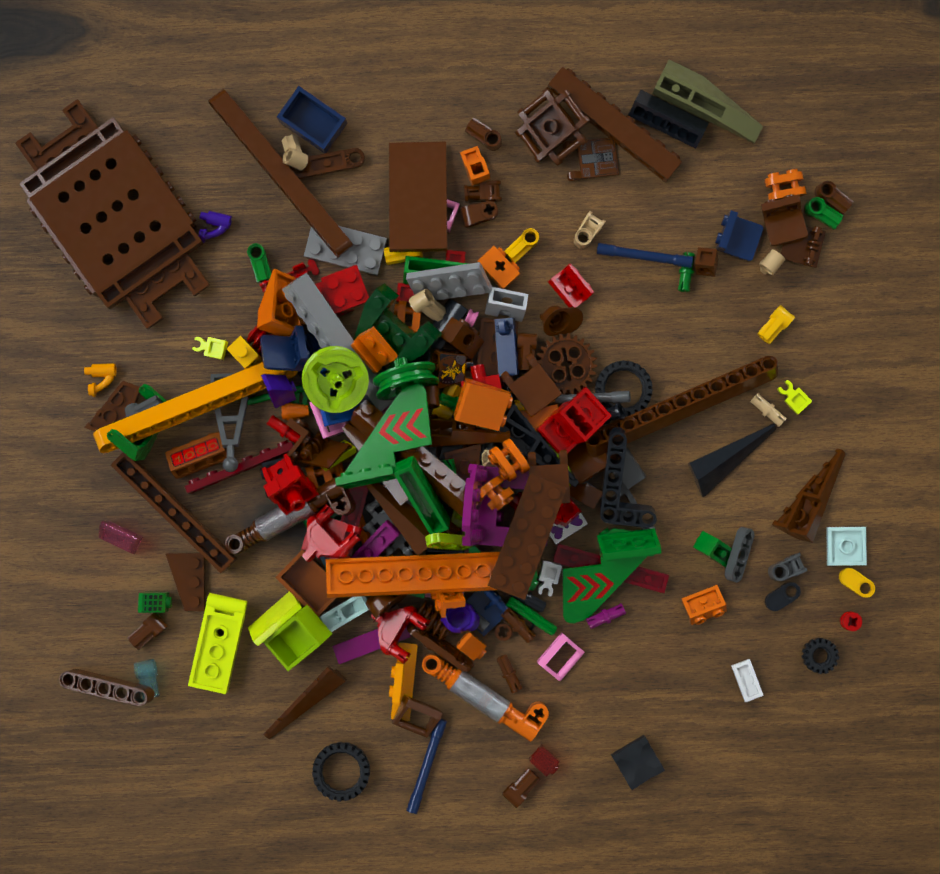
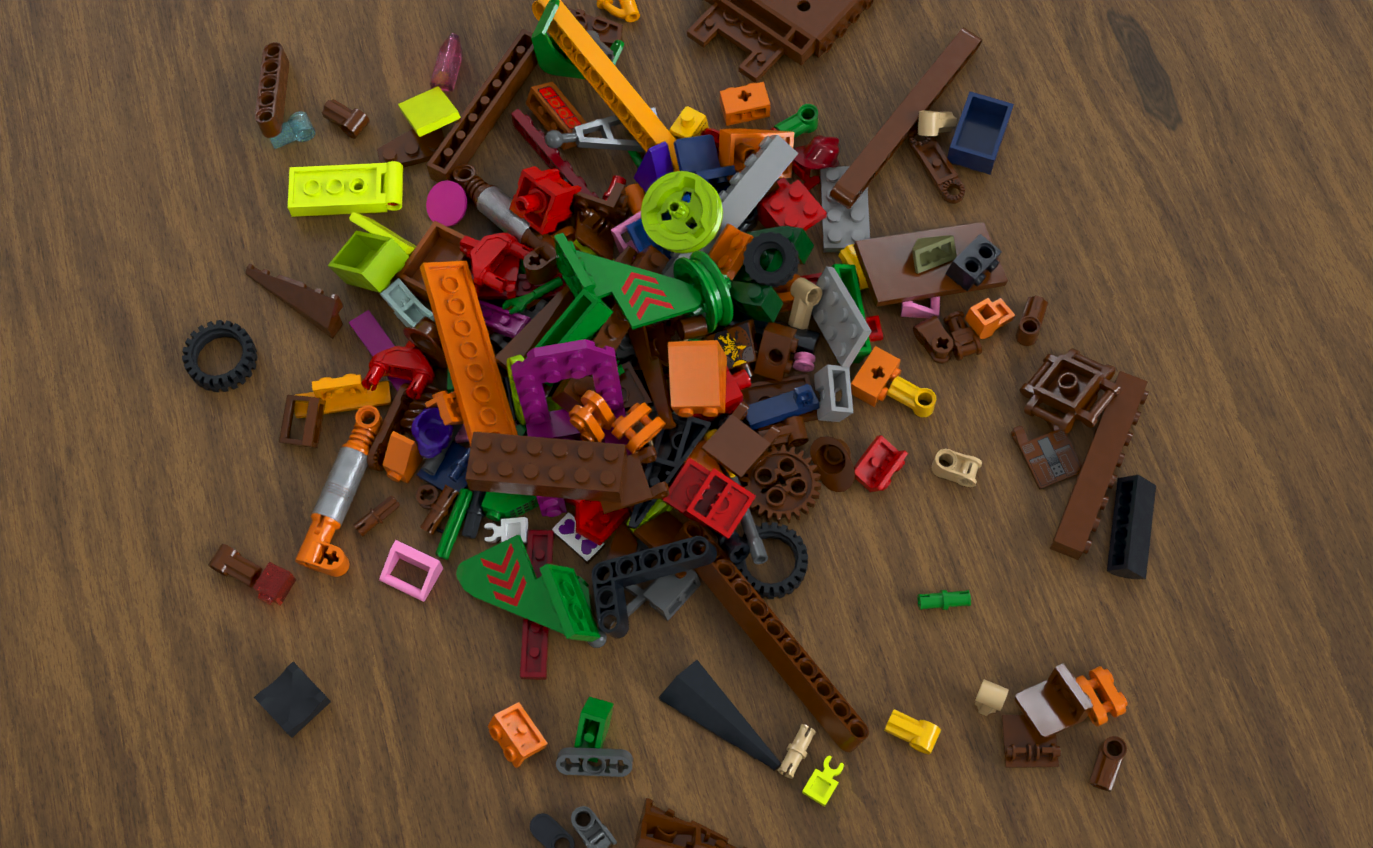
camera: 80 degrees right, 20 degrees down
(154, 602) = (378, 110): green slope -> none
(165, 560) = (429, 111): none -> neon yellow tile
(213, 347) = (684, 98): neon yellow plate -> none
(217, 219) = (833, 76): dark purple plant -> none
(232, 289) = (744, 103): none -> orange brick
(254, 564) = (446, 203): none -> dark pink piece
(295, 256) = (818, 153): none -> dark red piece
(367, 522) = (521, 302): none -> green piece
(410, 328) = (754, 252): none -> black tyre
(412, 192) = (933, 252): none -> olive slope
(416, 796) = (203, 448): dark blue piece -> none
(426, 165) = (974, 262): none -> black brick
(606, 616) = (474, 613): magenta pin -> none
(677, 260) = (954, 579): dark blue piece -> none
(704, 100) = (1172, 565): olive wedge -> none
(706, 262) = (965, 617): reddish brown brick -> none
(738, 237) = (1012, 651): dark blue bracket -> none
(747, 680) = (428, 817): white plate -> none
(824, 214) = (1080, 757): green piece -> none

